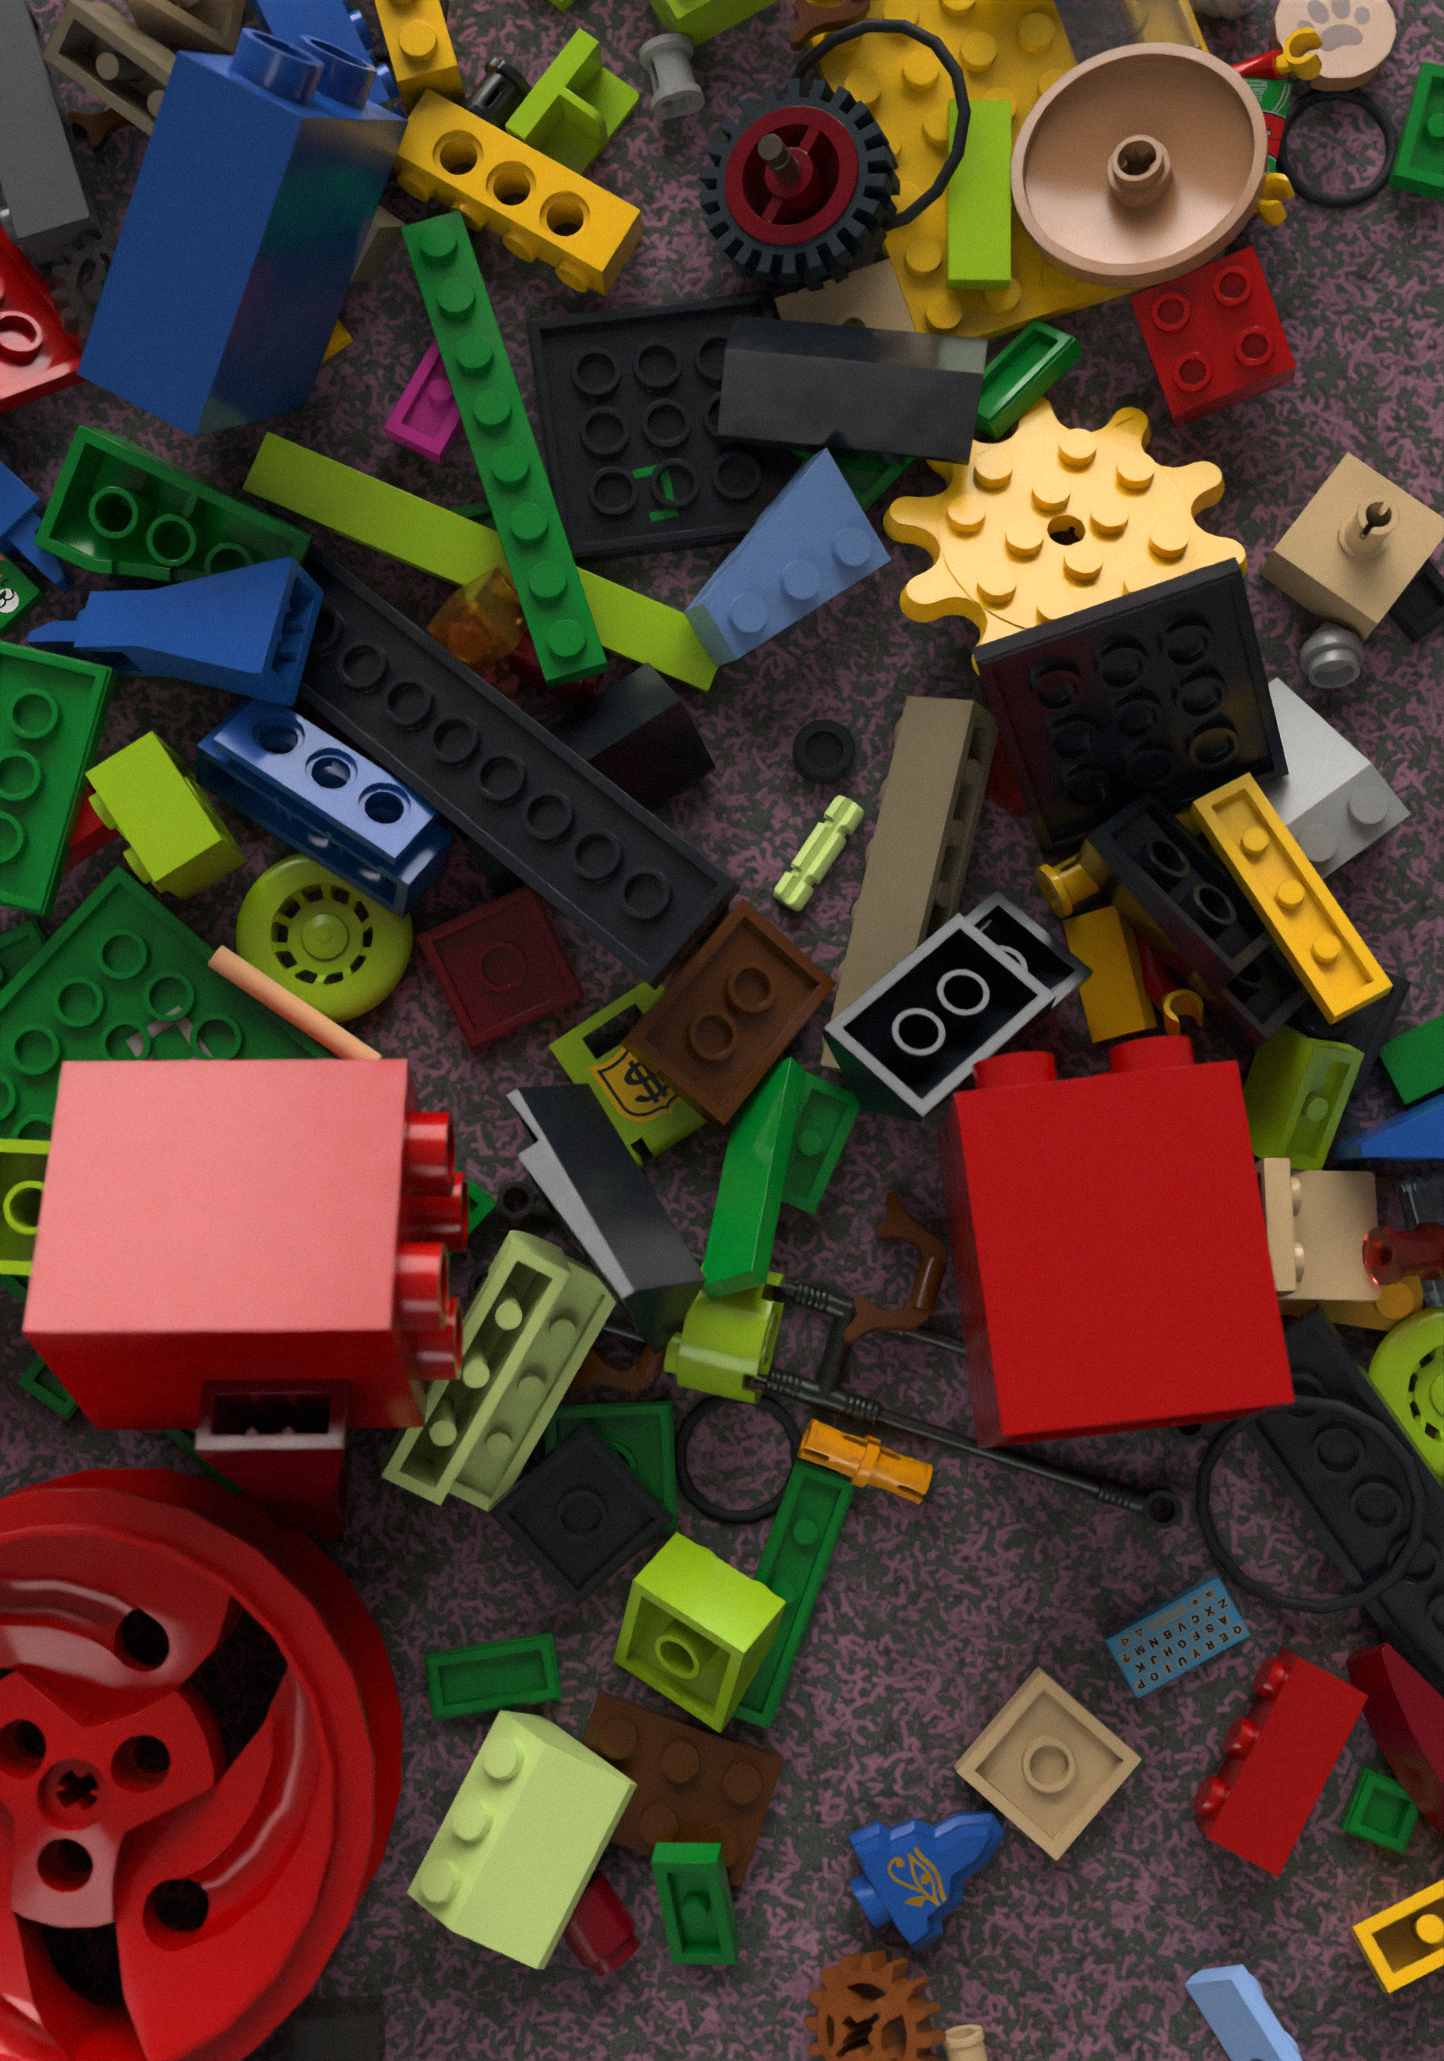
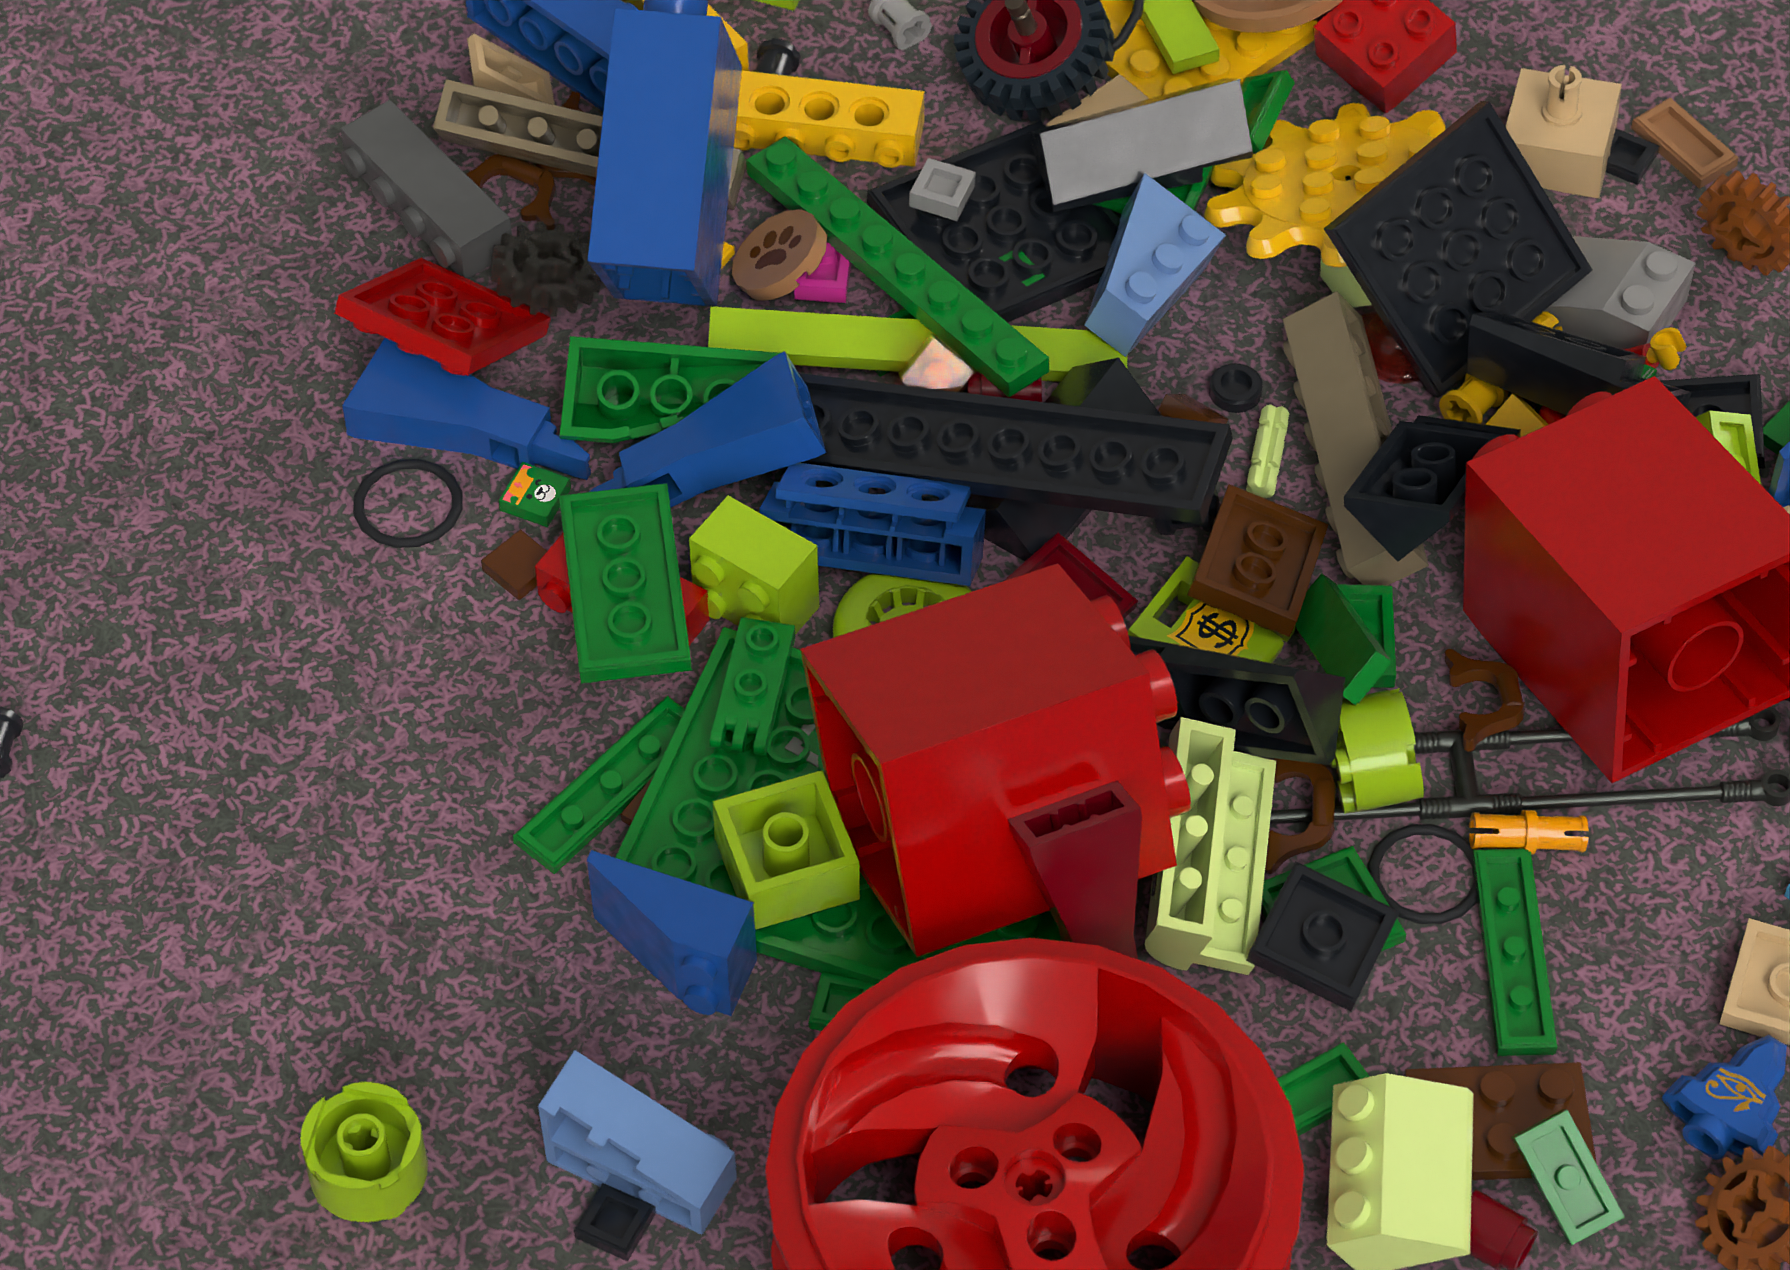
camera: 20 degrees left, 30 degrees down
(111, 962) = (753, 684): none -> green hinge
(384, 377) = (779, 254): none -> medium nougat tile
(574, 107) = (837, 53): lime panel -> none
(601, 361) = (942, 189): none -> light grey plate
(697, 1630) = (1461, 984): lime slope -> none
(754, 777) = (1185, 407): none -> reddish brown tile
(1290, 898) = (1637, 327): yellow piece -> none
(1332, 656) = (1582, 205): light grey plate -> none

